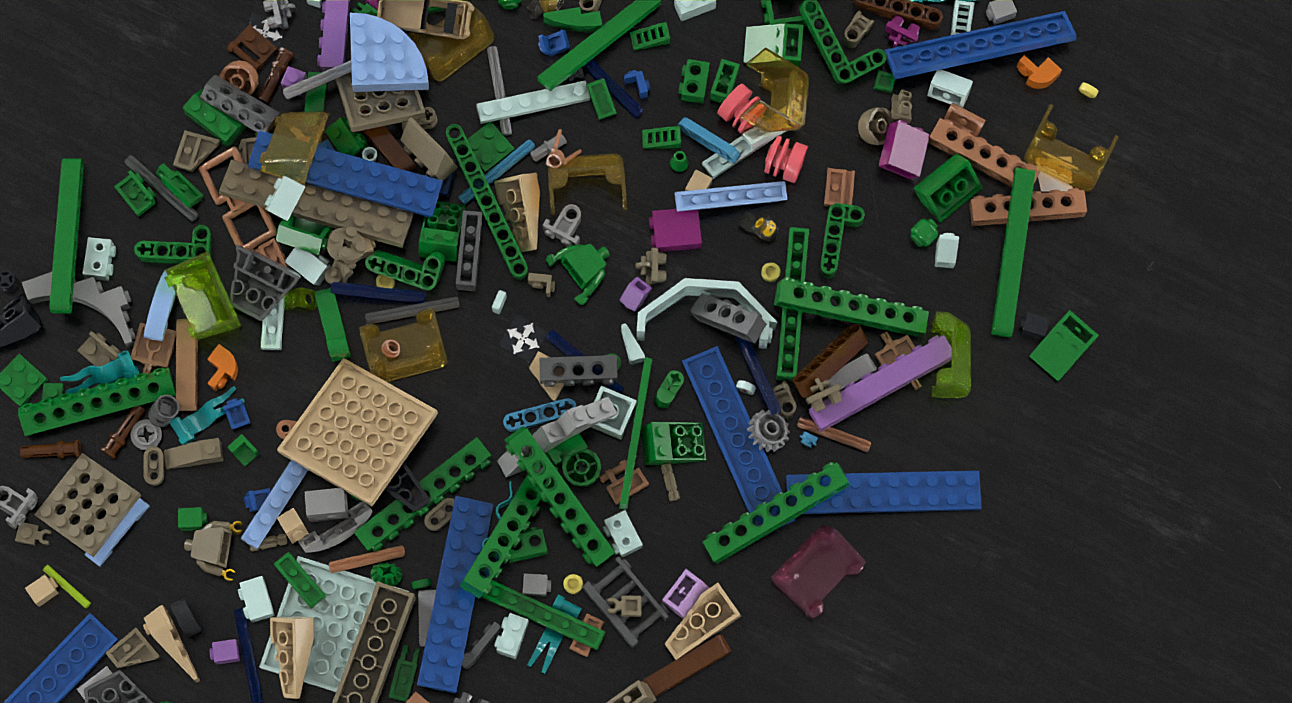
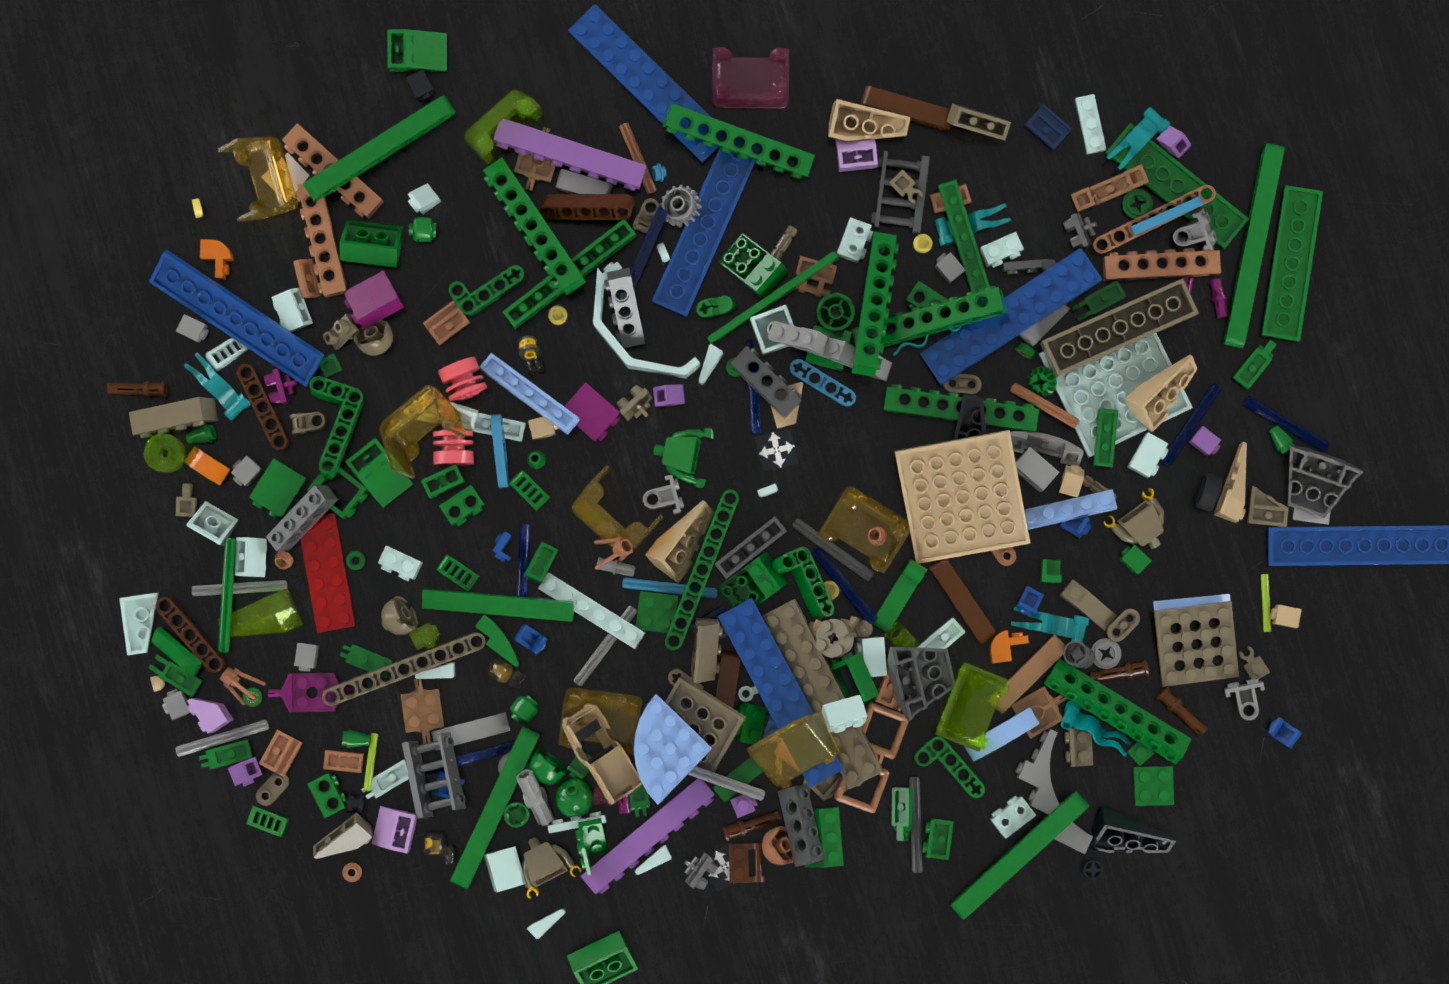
camera: 130 degrees left, 10 degrees up
(194, 150) = (865, 828): dark tan wing -> none
(284, 367) = (962, 601): none -> reddish brown beam
(541, 280) = (724, 476): dark tan bracket -> none
(816, 400) = (628, 186): dark tan hips -> none

